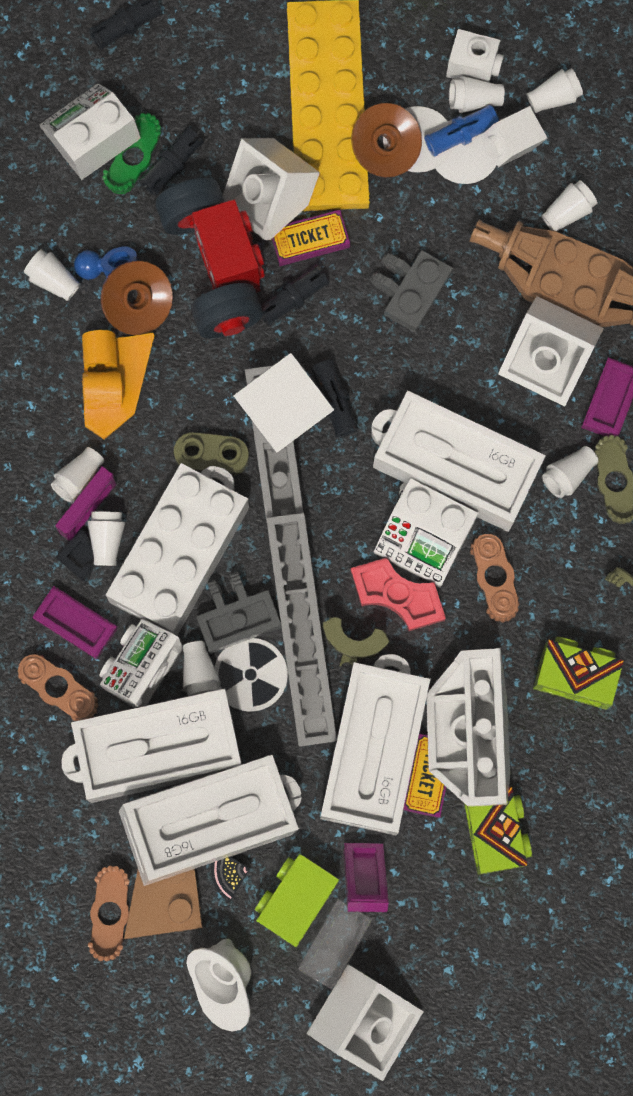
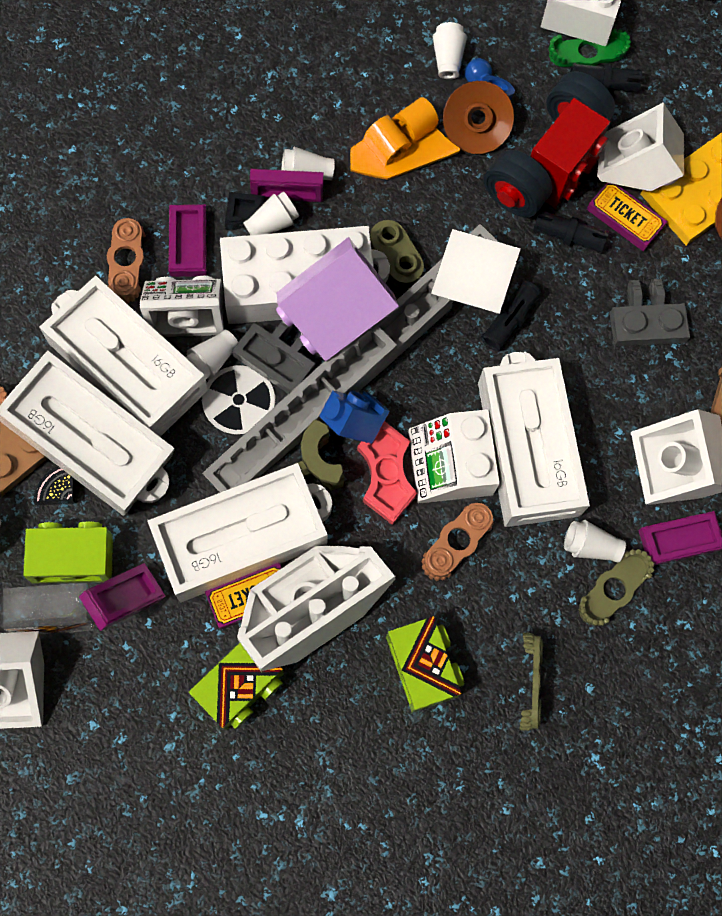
camera: 50 degrees right, 5 degrees down
(235, 536) = (335, 300): none -> lavender brick
(339, 588) = (354, 415): none -> blue brick

